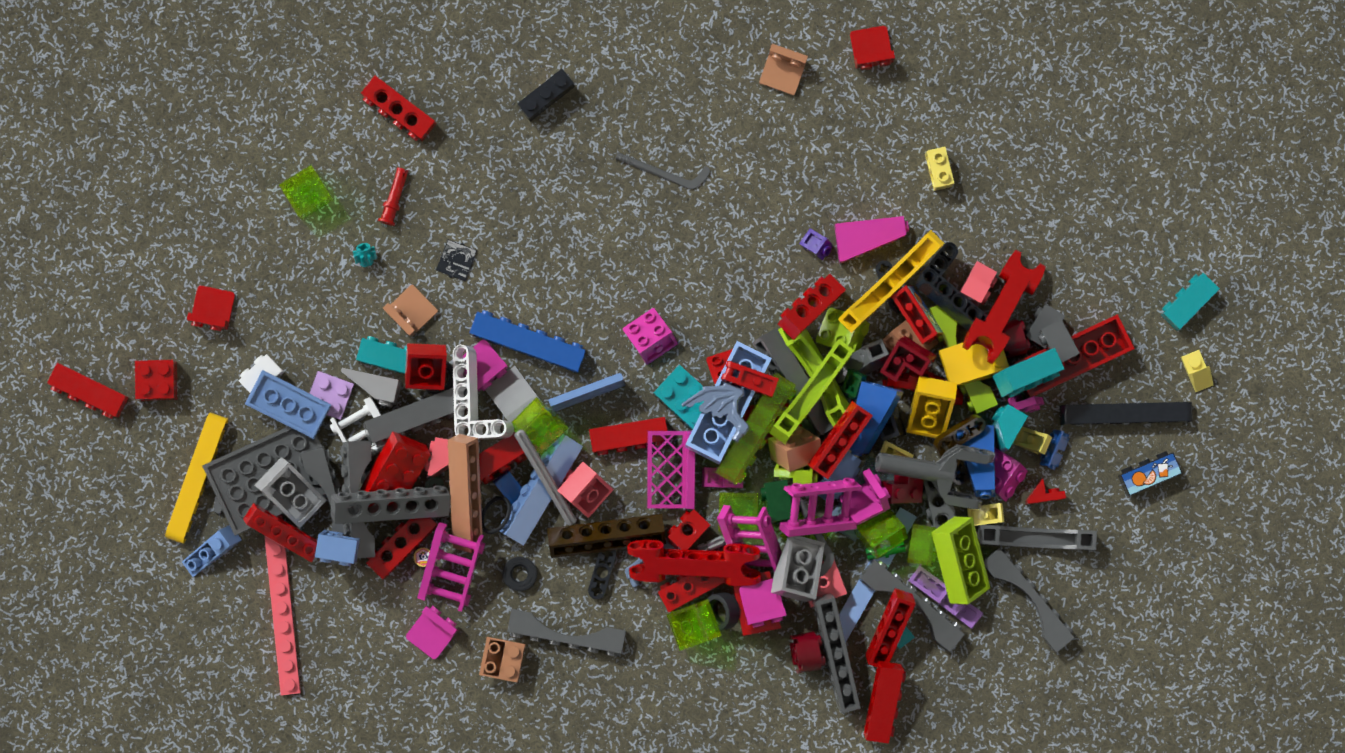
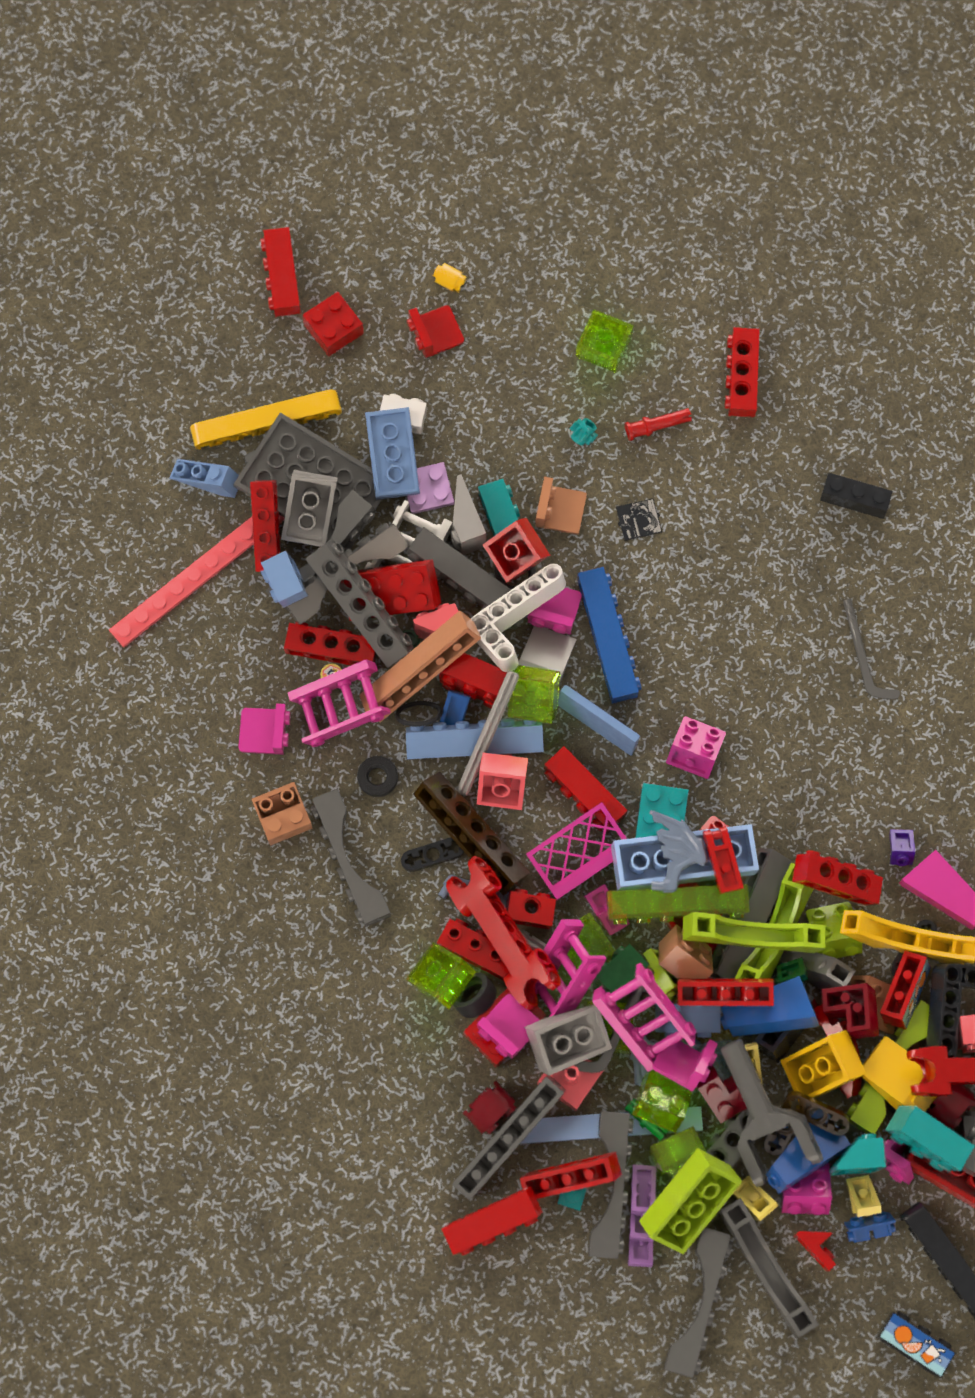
camera: 55 degrees right, 10 degrees down
(177, 270) = (449, 277): none -> yellow brick

